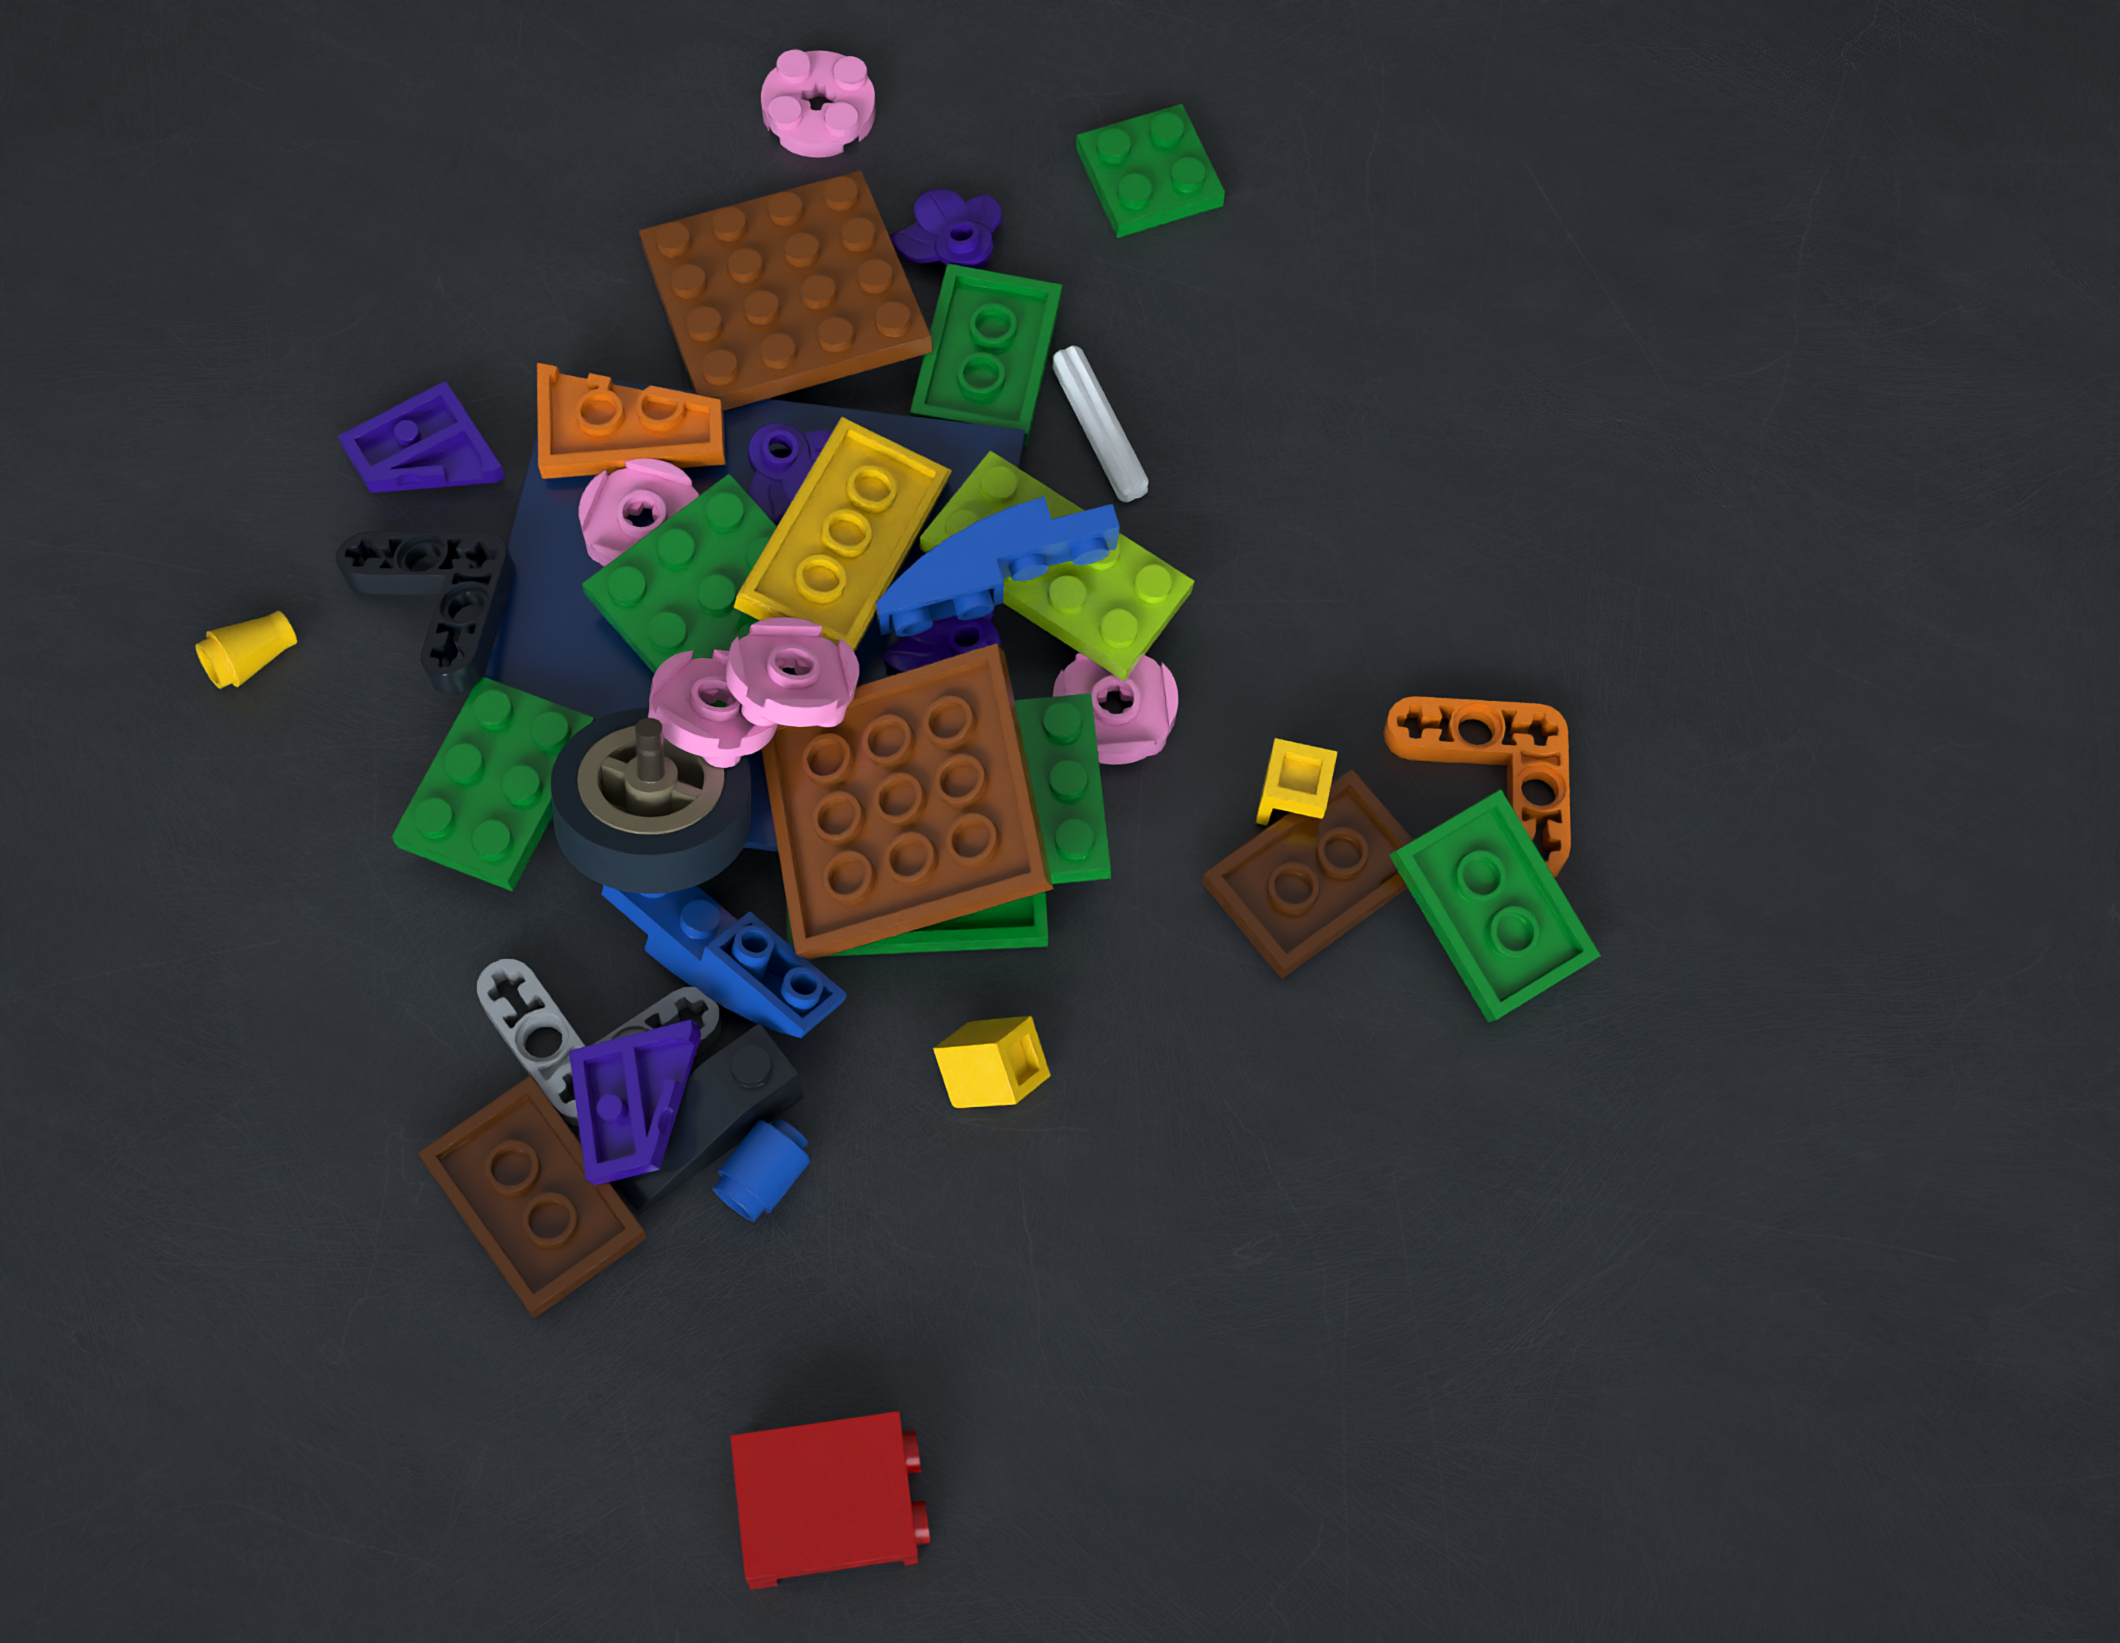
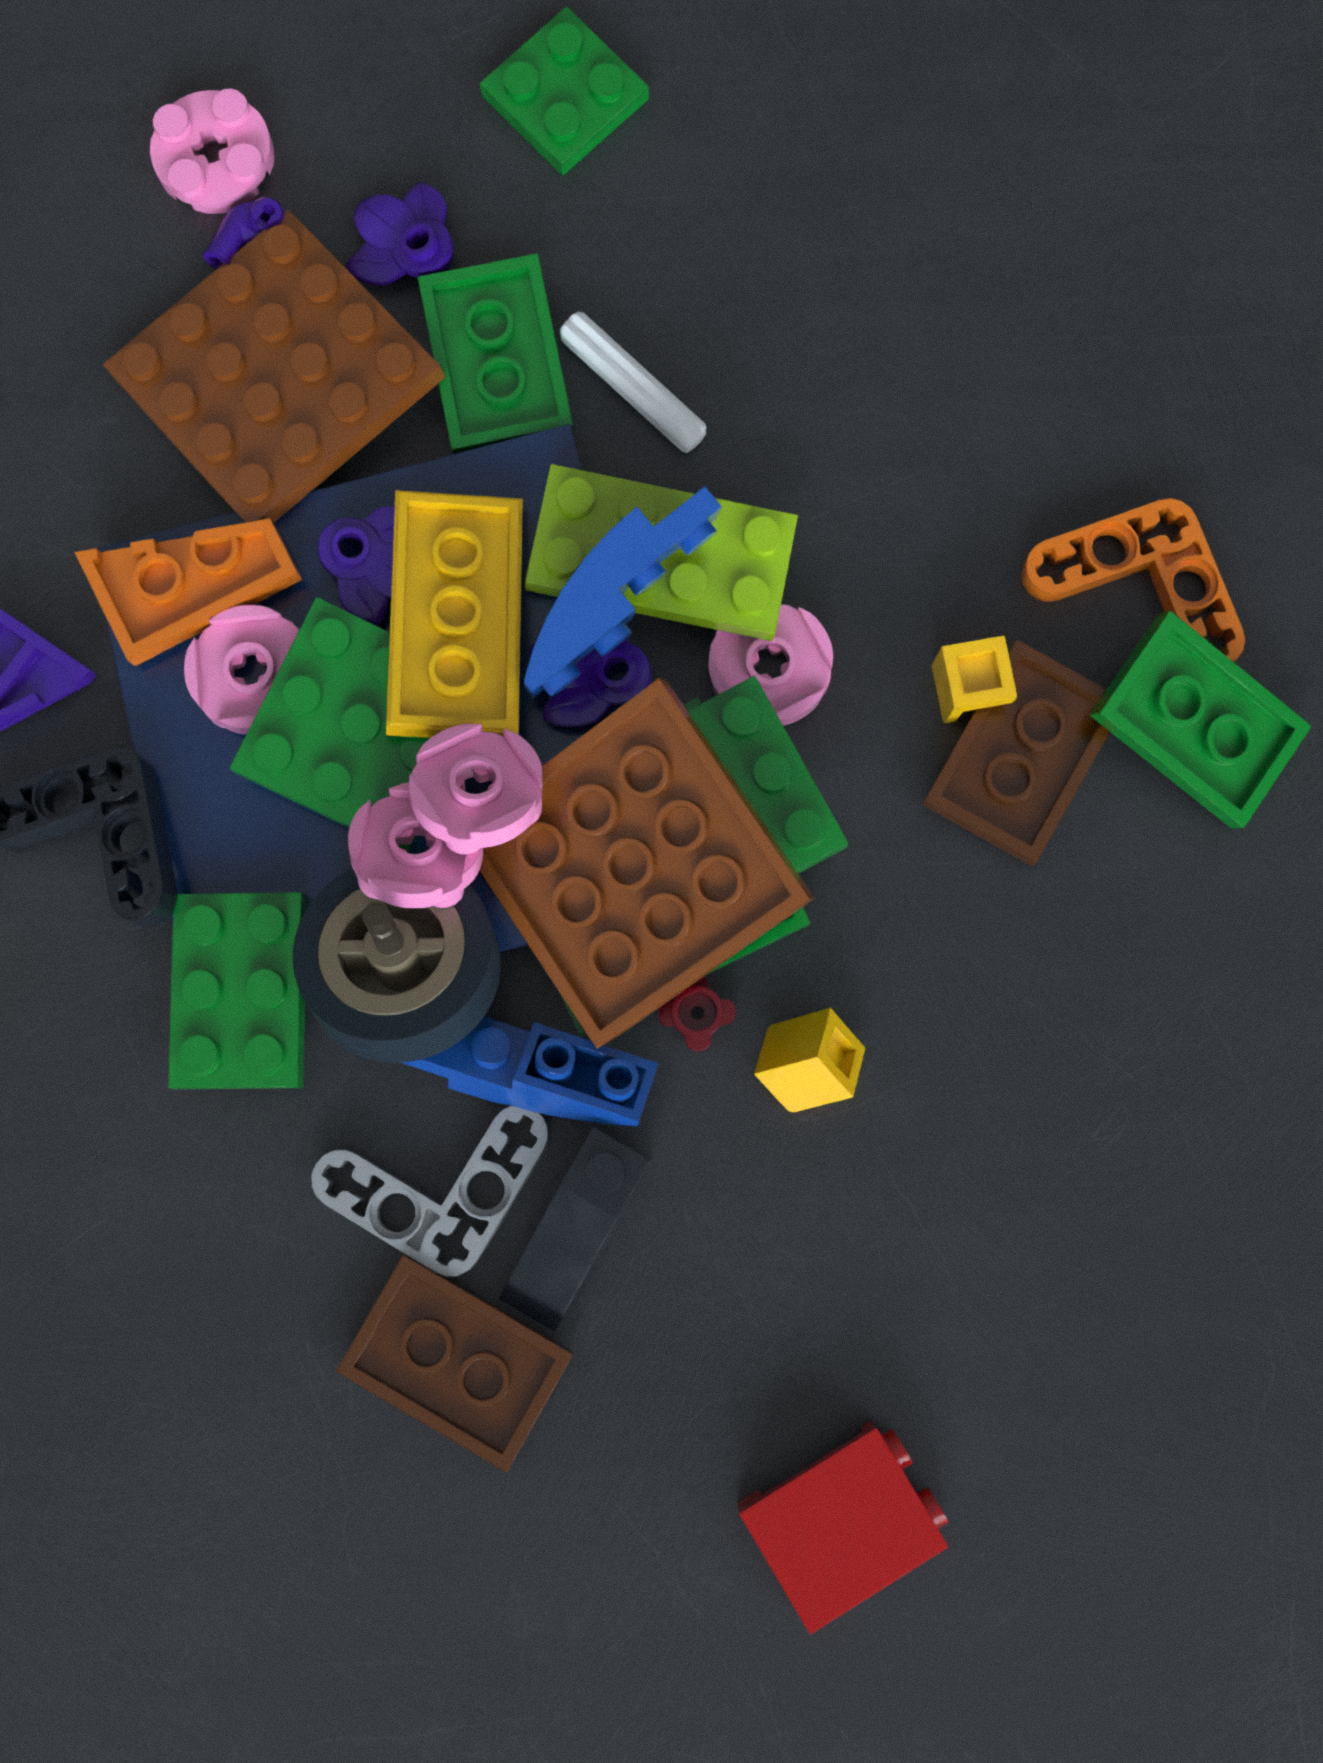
camera: 15 degrees left, 15 degrees up
(630, 1098) = (507, 1246): dark purple wing -> none
(762, 1168) = (650, 1250): blue brick -> none
(813, 168) = (240, 227): none -> dark purple arm
(902, 962) = (697, 1031): none -> dark red plate

